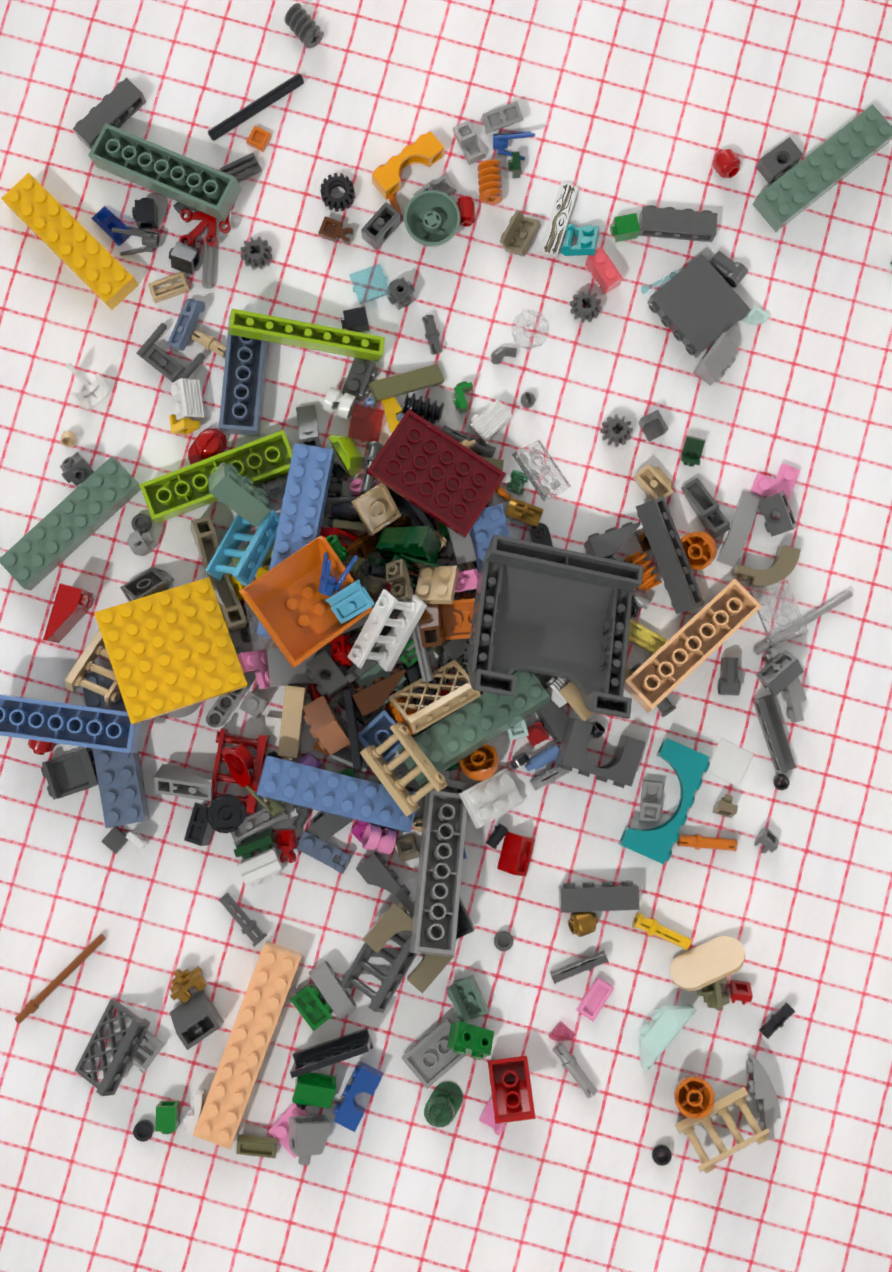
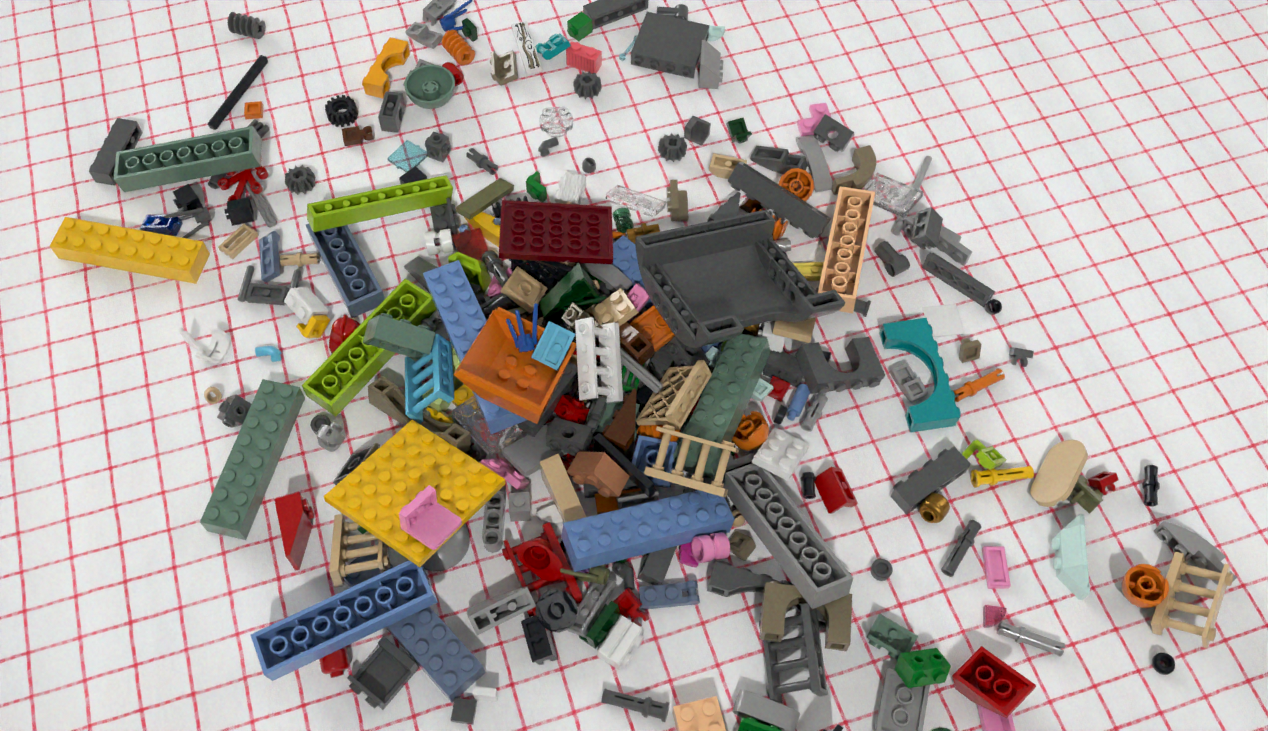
camera: 30 degrees left, 25 degrees down
(137, 424) = (269, 350): none -> medium azure arm
(158, 694) = (428, 519): none -> bright pink bracket
(580, 495) = (678, 202): none -> dark tan bracket
(662, 913) = (988, 457): none -> lime plate

